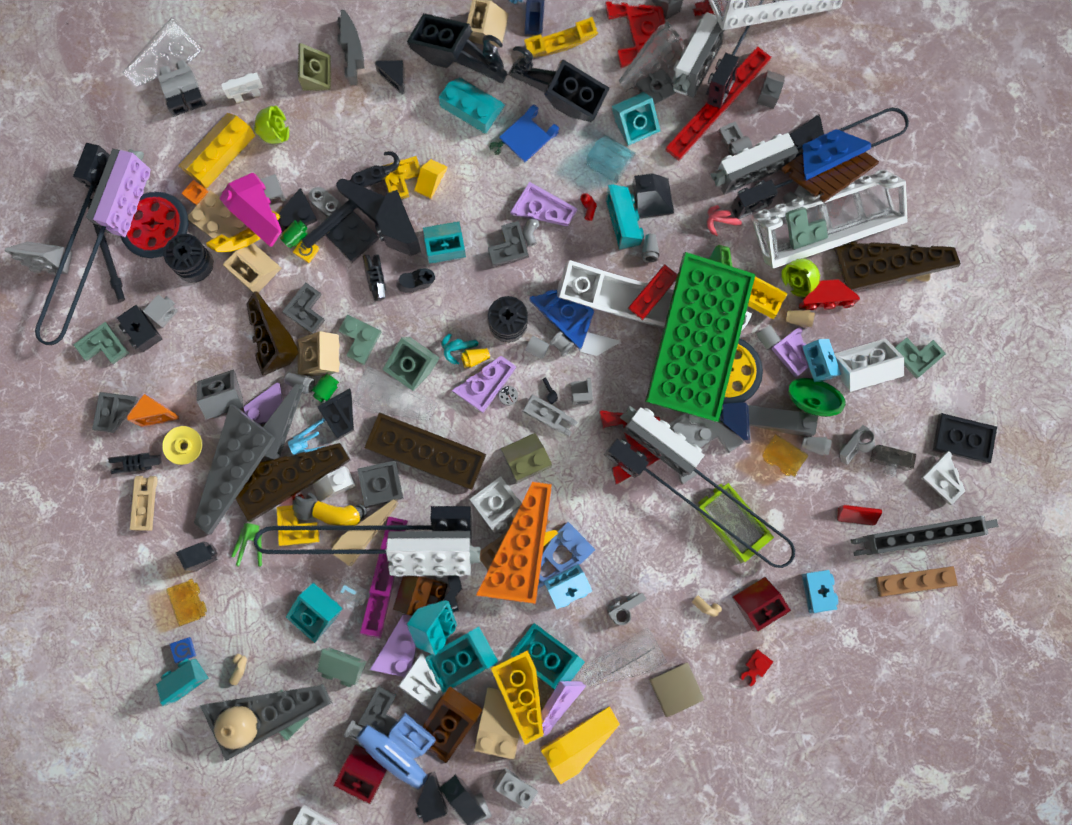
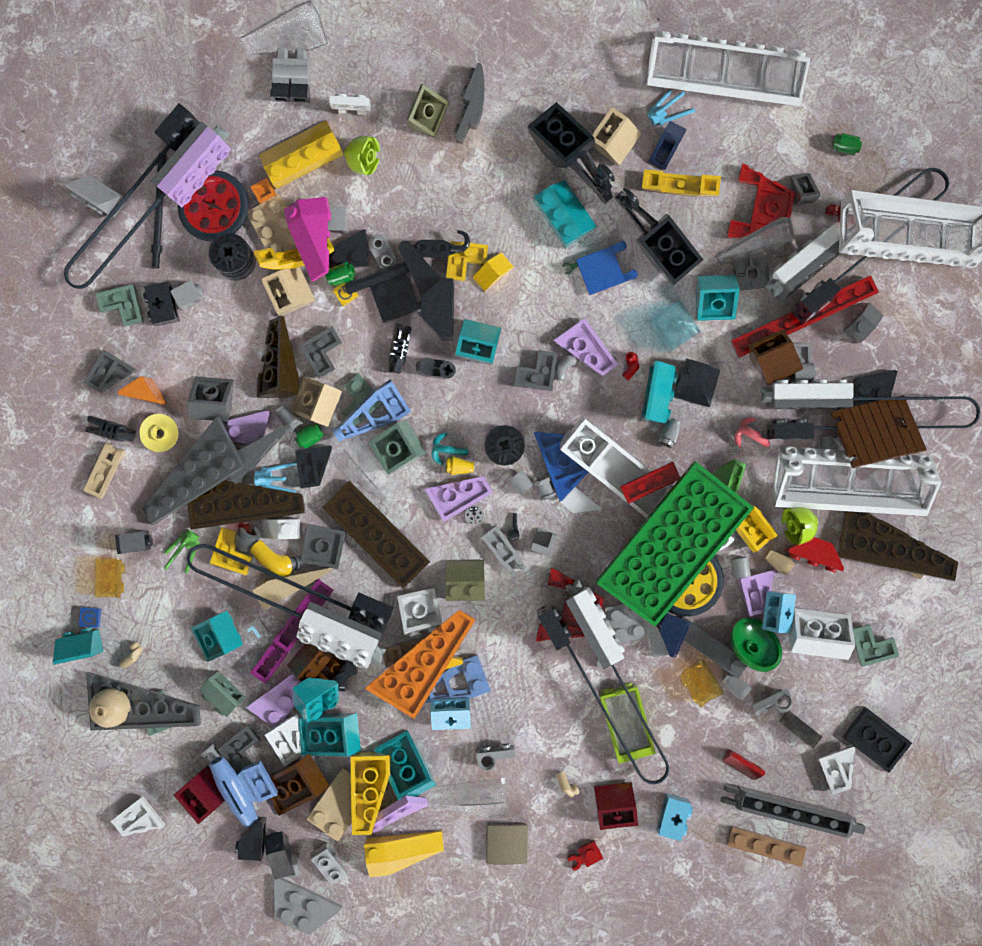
camera: 25 degrees right, 10 degrees up
(389, 324) = (393, 402): none -> medium blue plate
(393, 72) = (502, 149): black slope -> none
(710, 142) = (775, 357): none -> reddish brown slope
(804, 233) = (820, 485): sand green plate -> none
(831, 151) = (885, 418): blue wing -> none

